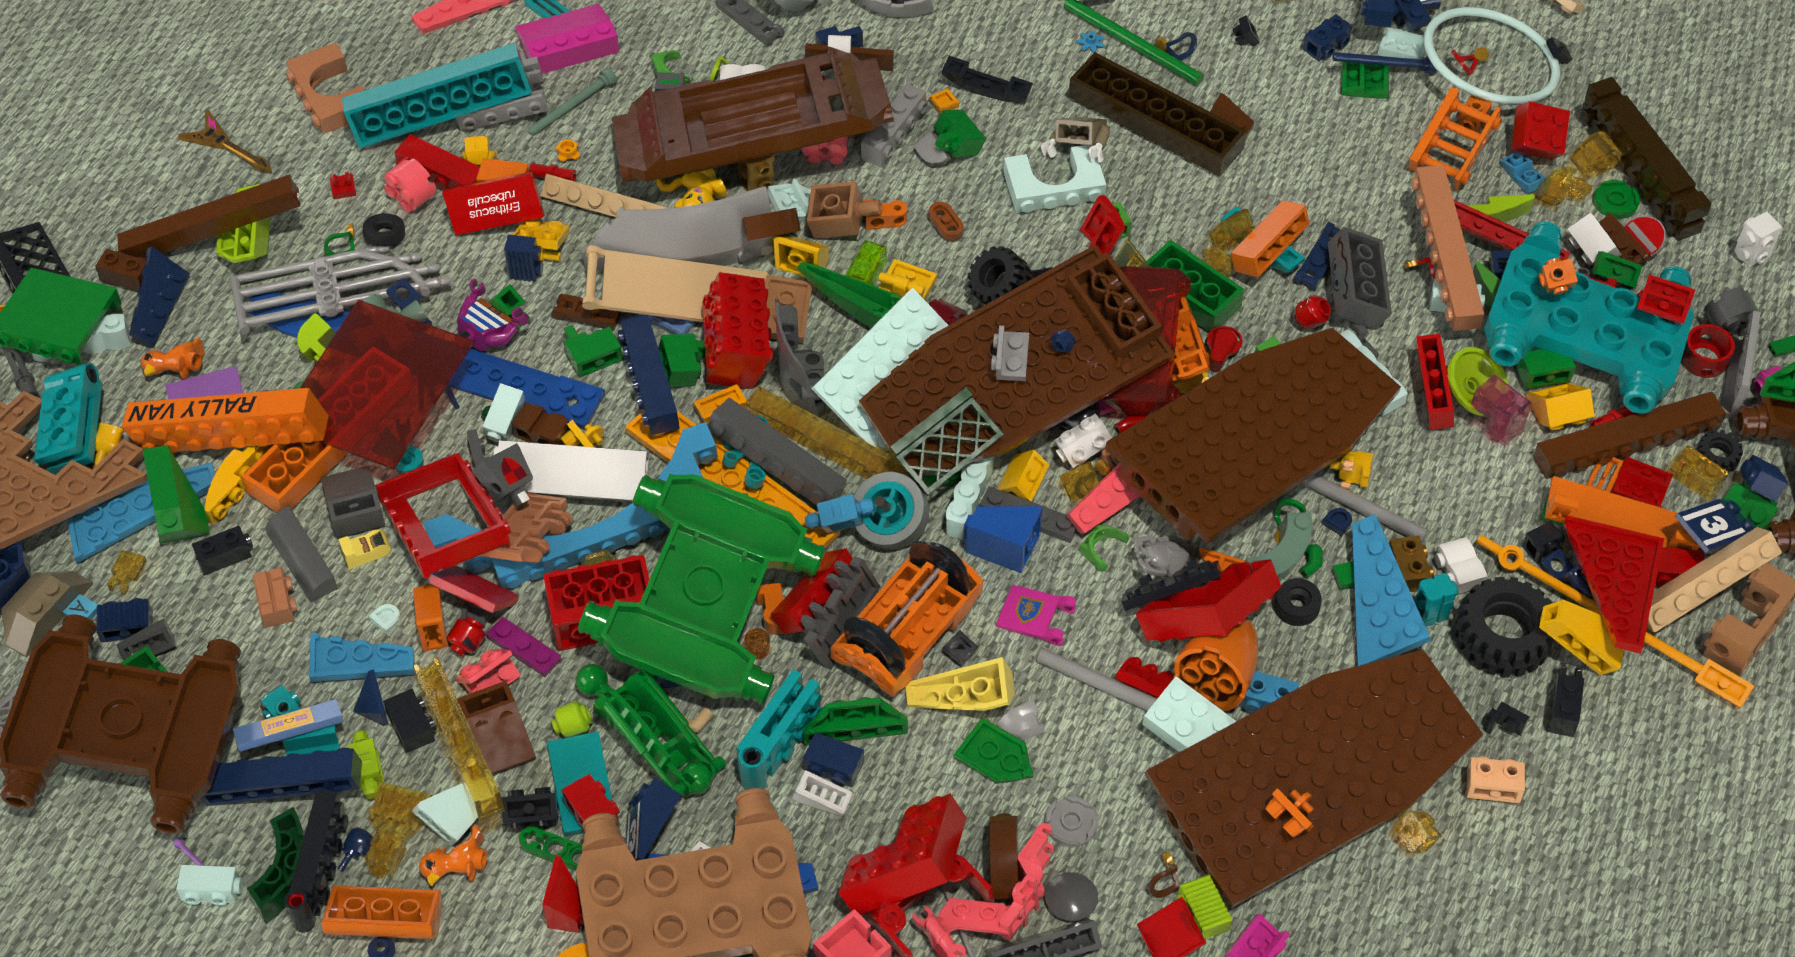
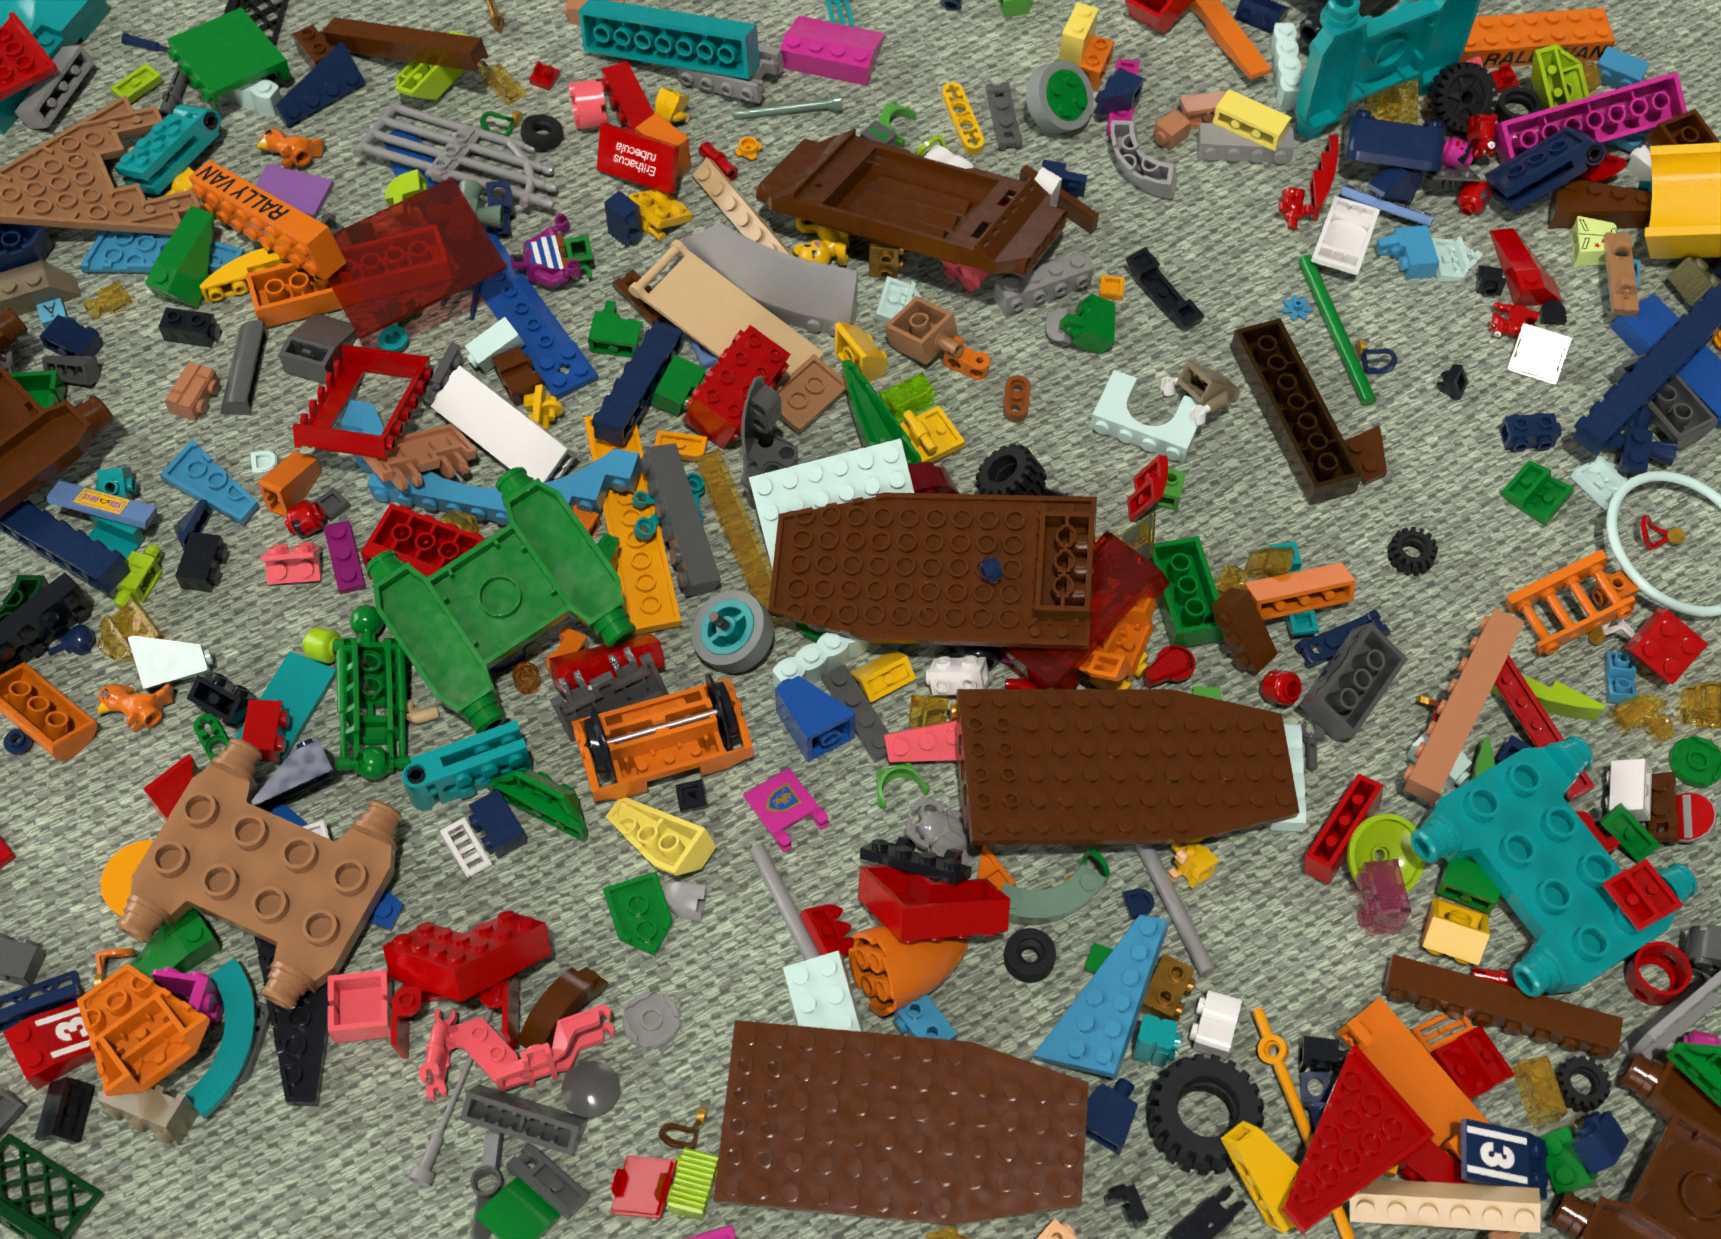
camera: 35 degrees right, 5 degrees up
(314, 212) = (501, 83): none -> clear yellow panel
(364, 548) = (291, 392): light yellow leg -> none
(385, 854) = (85, 663): clear yellow brick -> none
(459, 740) = (210, 604): clear yellow tile -> none
(473, 589) = (342, 482): red tile -> none
(497, 727) = (257, 612): reddish brown slope -> none
(505, 475) = (437, 398): dark grey torso -> none
(722, 33) = (960, 119): none -> yellow beam
(771, 224) = (846, 310): reddish brown arch -> none
(839, 513) = (681, 606): dark azure piece -> none
(932, 425) = (818, 575): fence -> none
(1011, 355) = (936, 553): light grey bracket -> none
(1258, 285) = (1243, 629): none -> reddish brown brick
(1281, 803) = (833, 1151): orange hips -> none
(1315, 557) = (1082, 925): green arm -> none
(1320, 157) = (1415, 539): none -> black tyre
(1424, 63) = (1564, 484): dark blue piece -> none
(1451, 666) = (1111, 1115): none -> dark blue torso
(1487, 151) = (1599, 634): none -> piece
(1564, 270) = (1548, 809): orange brick -> none

